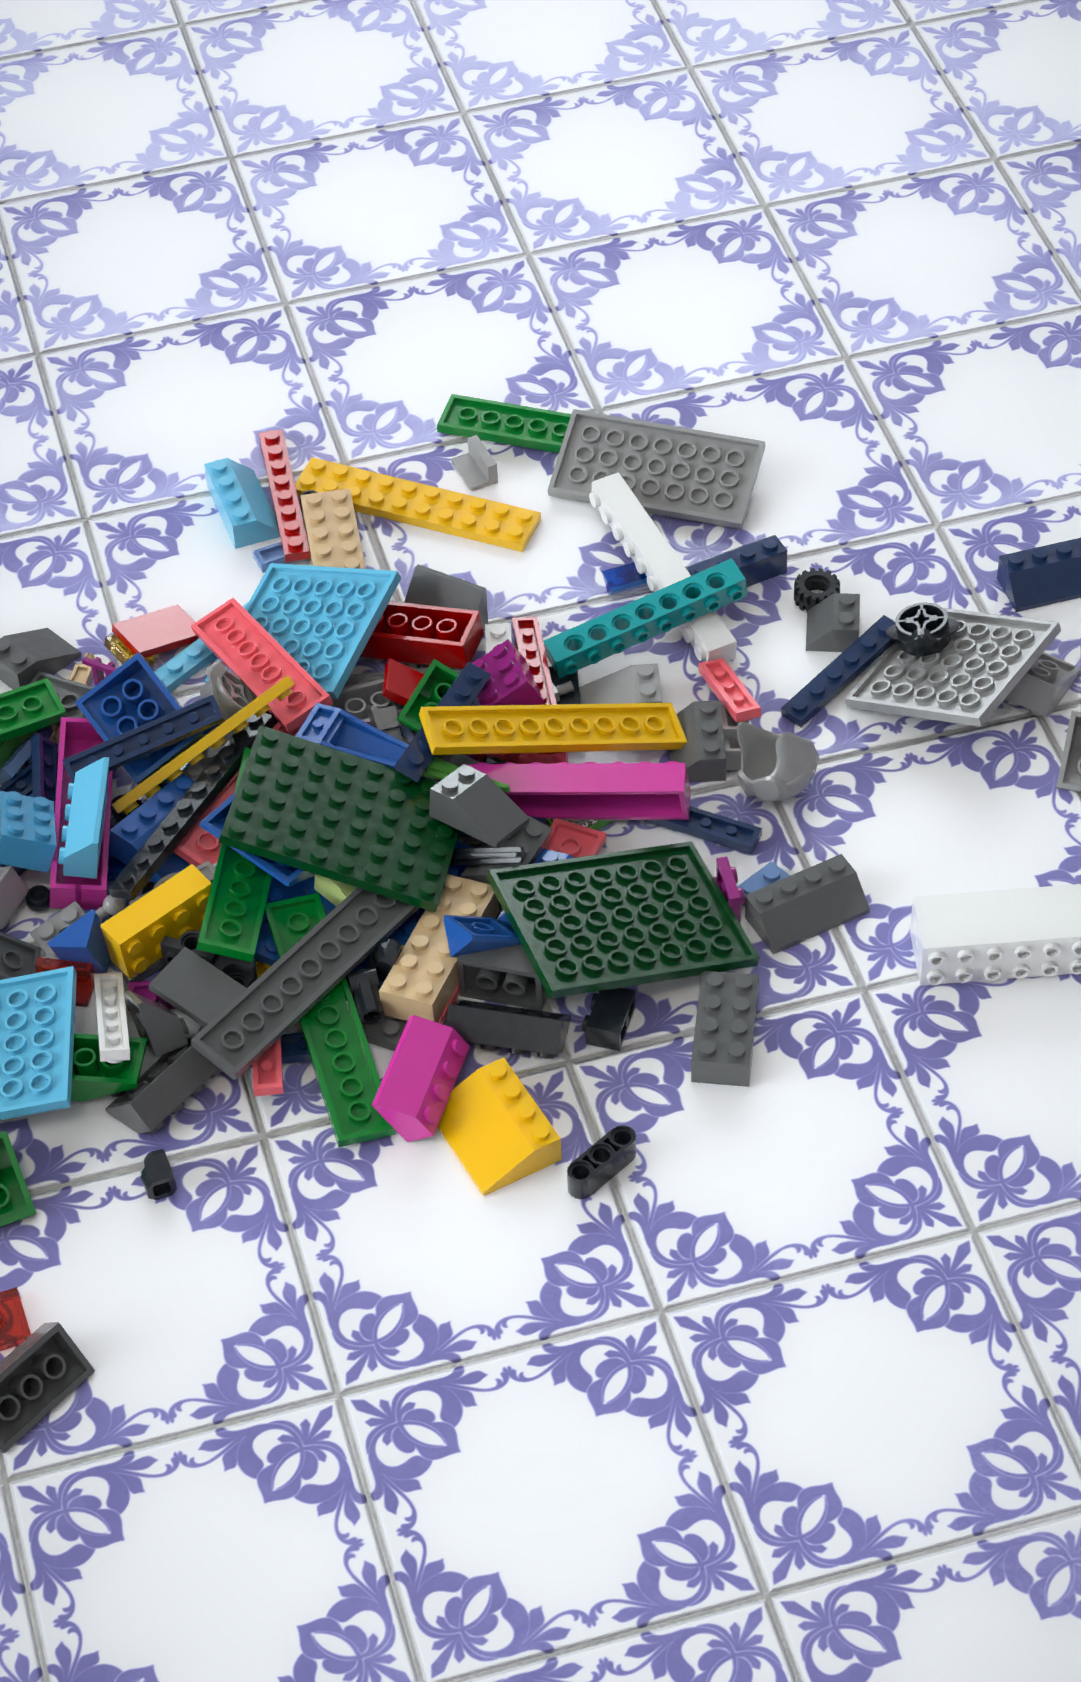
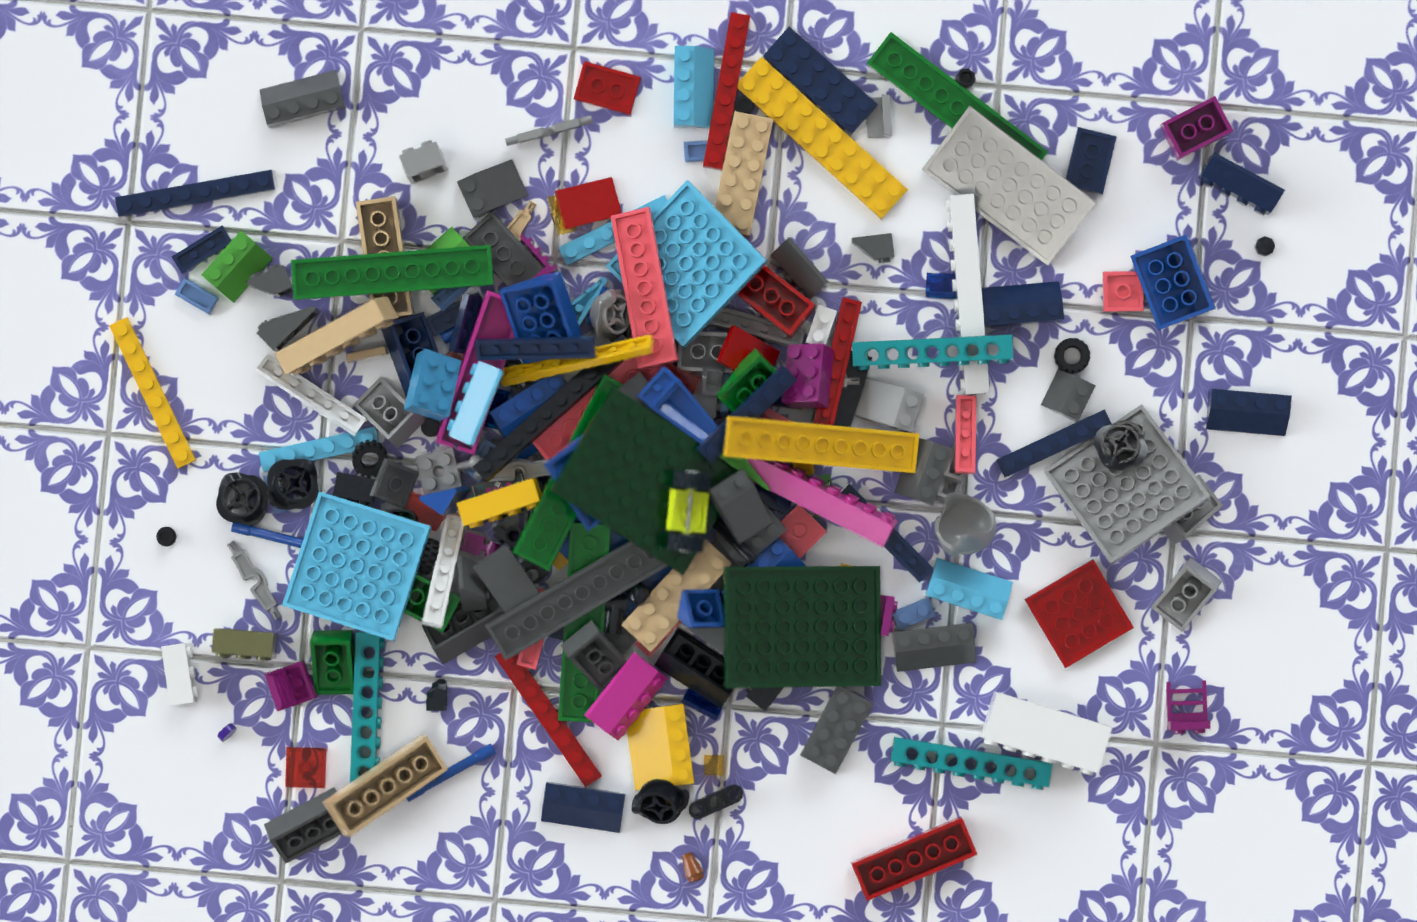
camera: 15 degrees right, 40 degrees up
(61, 1227) = (363, 641): none -> teal brick
(72, 591) = (545, 132): none -> light grey piece
(84, 1012) = (429, 556): none -> black tyre
(116, 1279) = (385, 785): none -> tan brick
(139, 536) = (607, 88): none -> red tile
(174, 1290) = (479, 756): none -> blue piece
(325, 1150) = (548, 718): none -> red plate
(356, 1036) = (594, 655): none -> dark grey slope
(393, 456) = (820, 80): none -> dark blue plate
(412, 818) = (688, 511): none -> plate
(417, 1229) = (583, 807): none -> dark blue slope
(497, 1195) = (660, 801): none -> black piece
(527, 567) = (876, 246): none -> dark grey slope
(535, 1068) = (701, 704): none -> clear blue slope
(558, 405) = (965, 78): none -> black tile
(579, 1128) = (714, 765): none -> clear yellow plate
(608, 1252) = (692, 869): none -> dark orange cone
(738, 420) = (1090, 160): none -> dark blue plate
(819, 840) = (969, 588): none -> medium azure slope
(841, 365) = (1196, 128): none -> magenta brick
(842, 521) = (1122, 292): none -> coral plate
(898, 488) = (1173, 282): none -> blue slope
(906, 1129) = (914, 858): none -> red brick
(920, 389) = (1241, 184): none -> dark blue slope
(923, 1006) = (1041, 768): none -> teal brick
(970, 817) = (1079, 613): none -> red plate
(980, 441) = (1264, 246): none -> black tile

